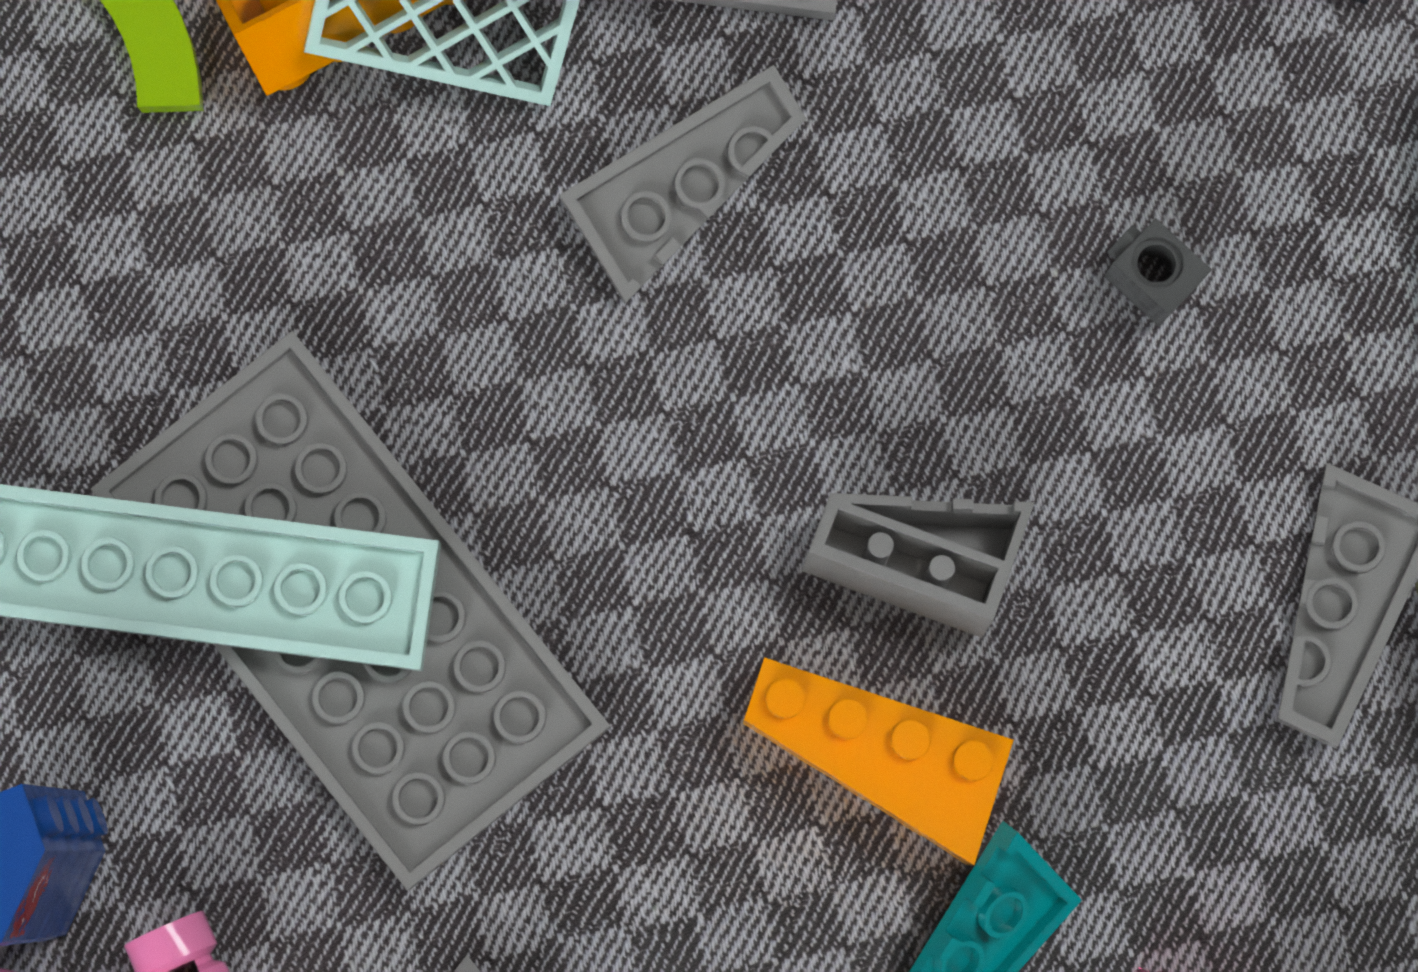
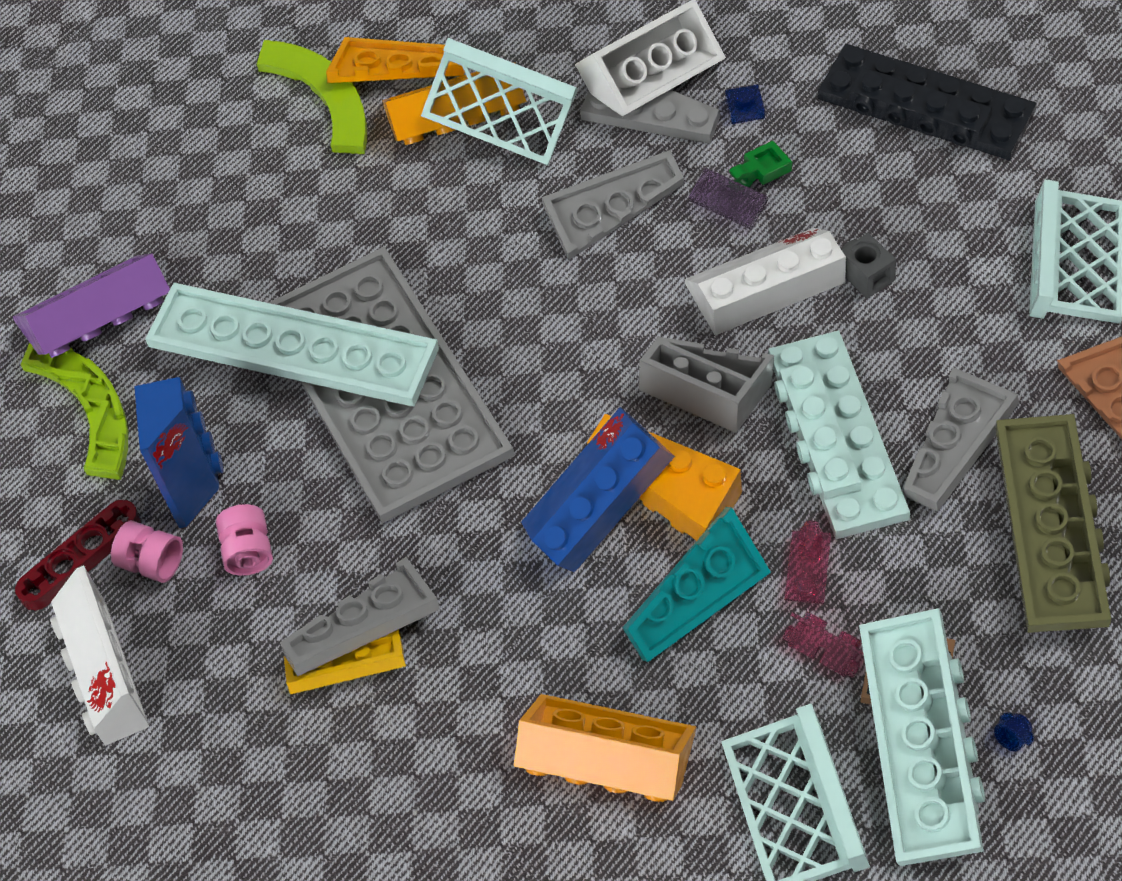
camera: 20 degrees right, 25 degrees down
(773, 812) = (596, 491): none -> blue slope
(891, 152) = (728, 198): none -> clear purple plate
(942, 70) = (762, 163): none -> green plate
(983, 309) = (768, 279): none -> white slope
(1139, 879) = (808, 564): none -> clear pink hinge
(1148, 613) = (837, 435): none -> light aqua plate

